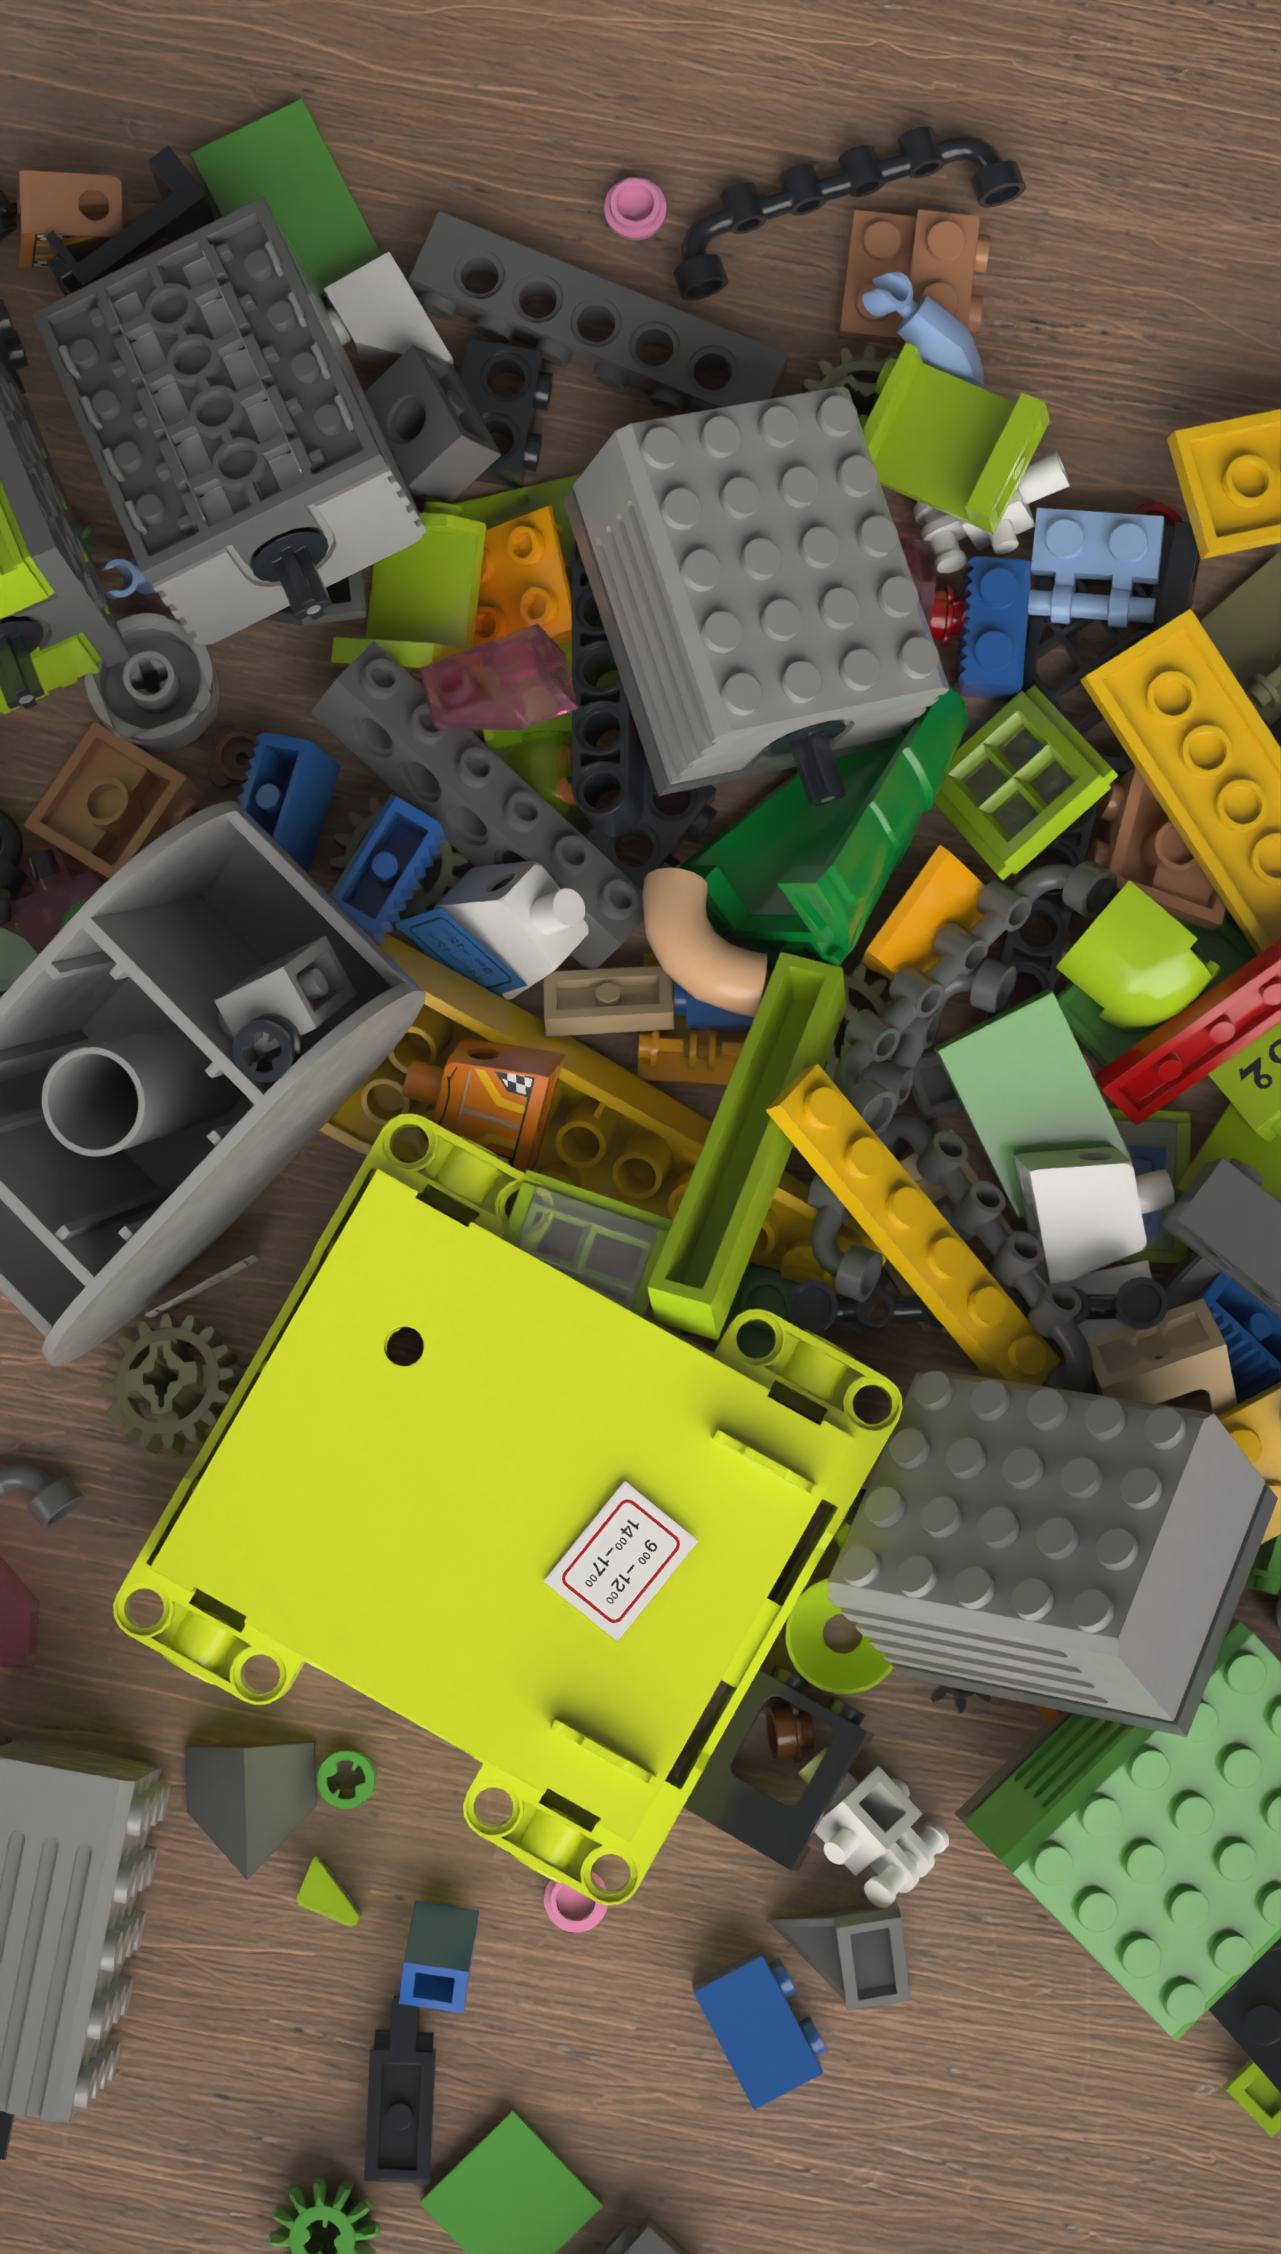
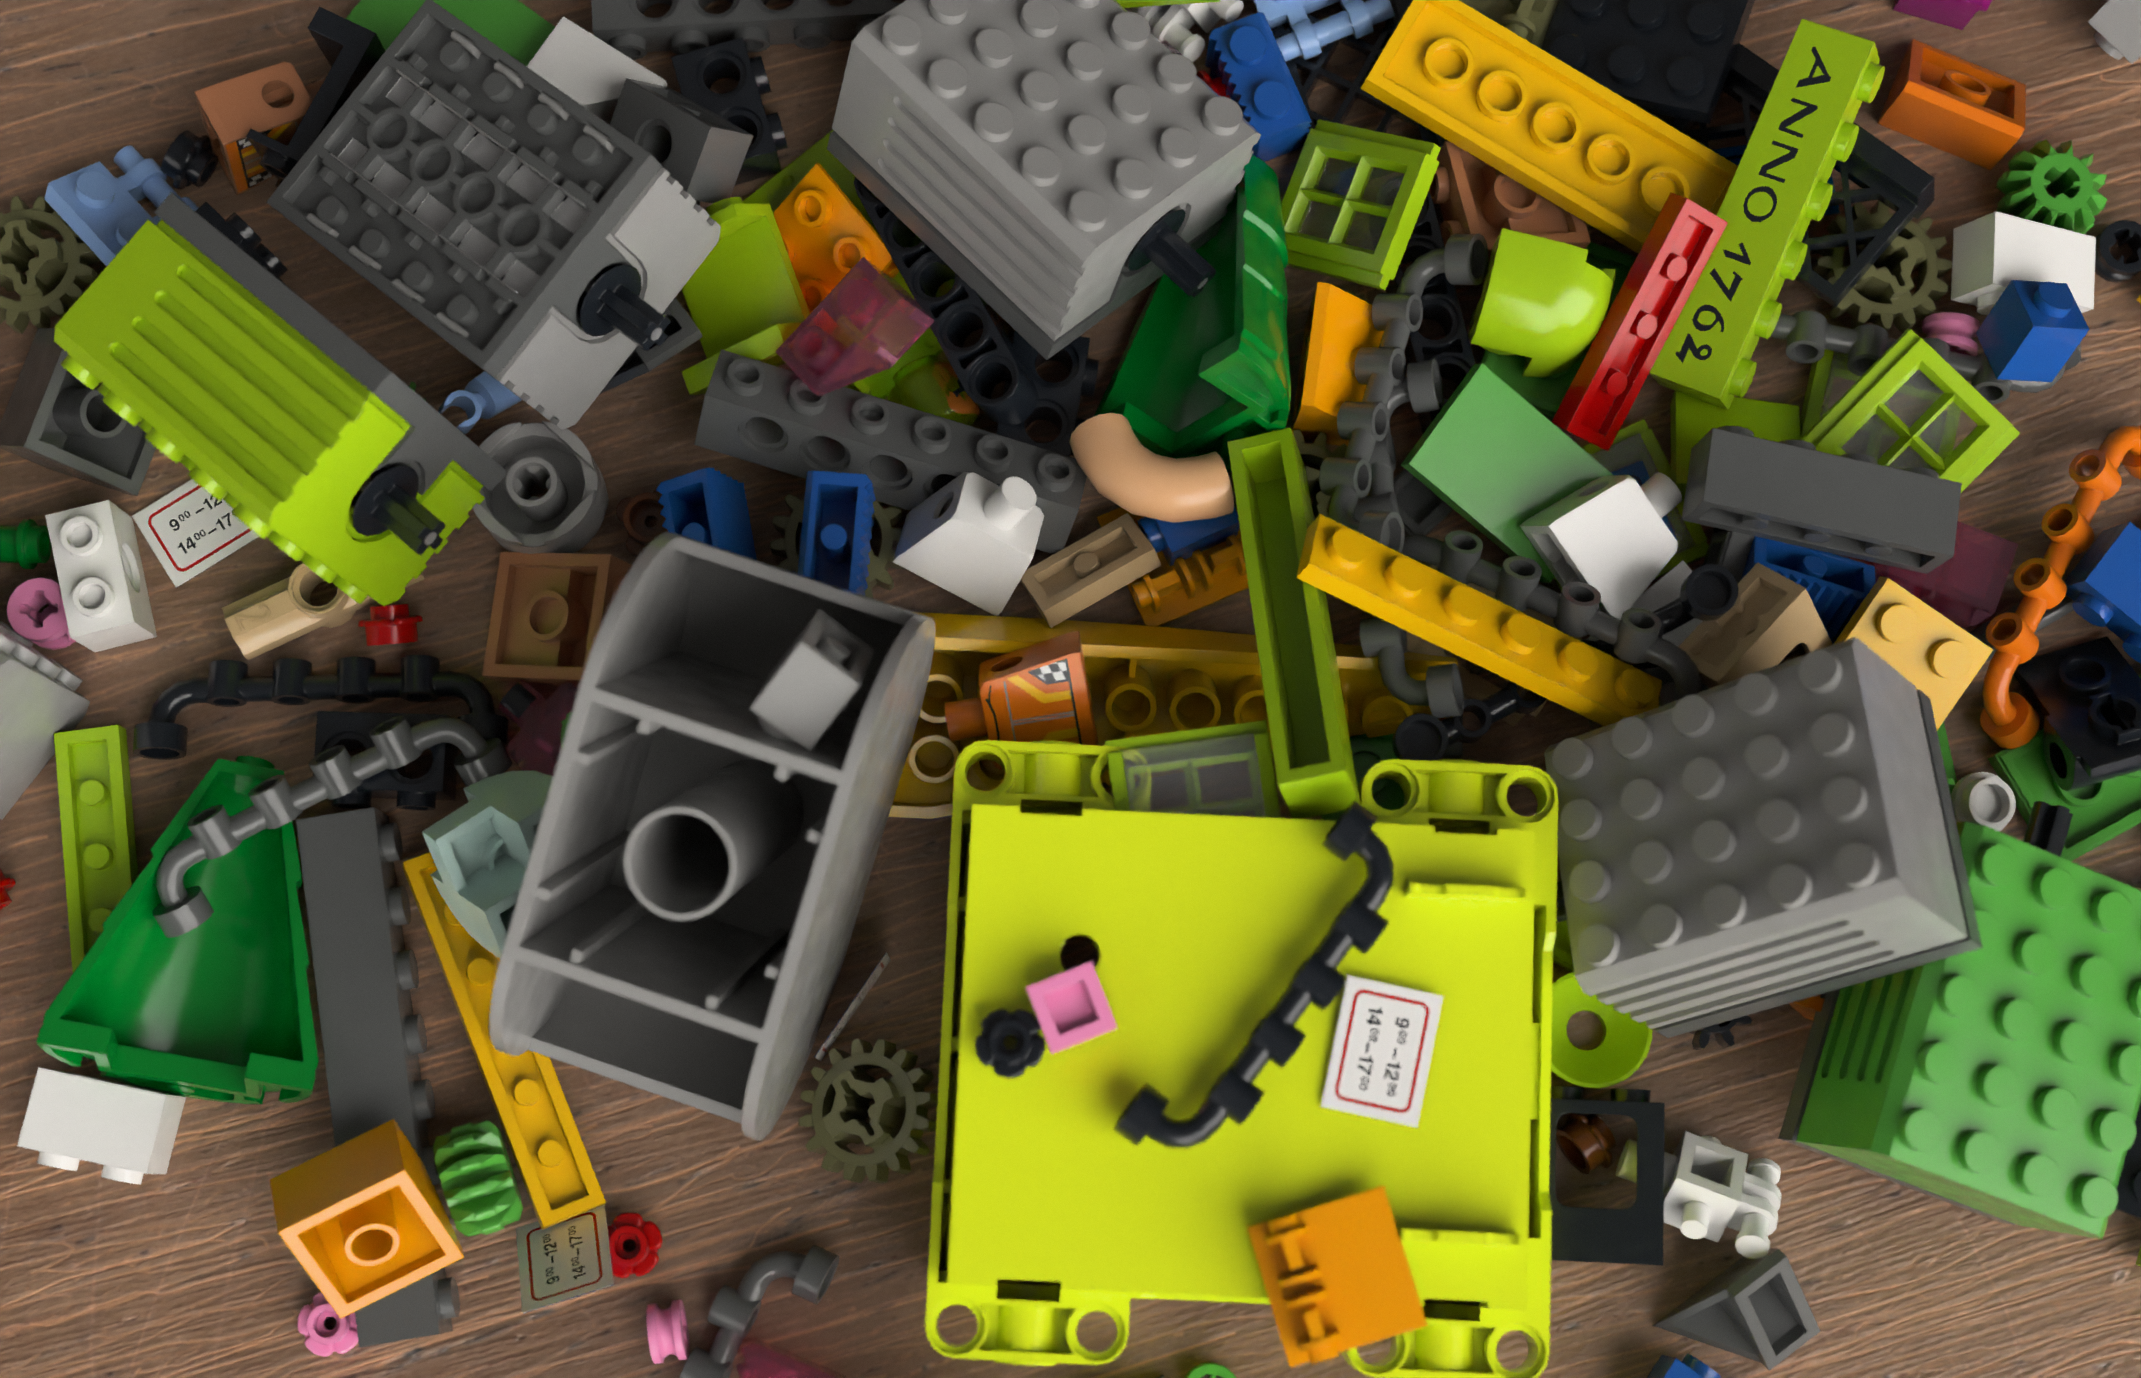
camera: 30 degrees left, 5 degrees down
(278, 1028) = (801, 719): black bush -> none
(321, 1385) = (1010, 1062): none -> black plate
(370, 1389) = (1071, 1008): none -> bright pink plate
(458, 950) = (935, 588): clear blue sticker -> none
(480, 1731) = (1336, 1276): none -> light orange hinge
(535, 1501) = (1276, 1034): none -> black bar

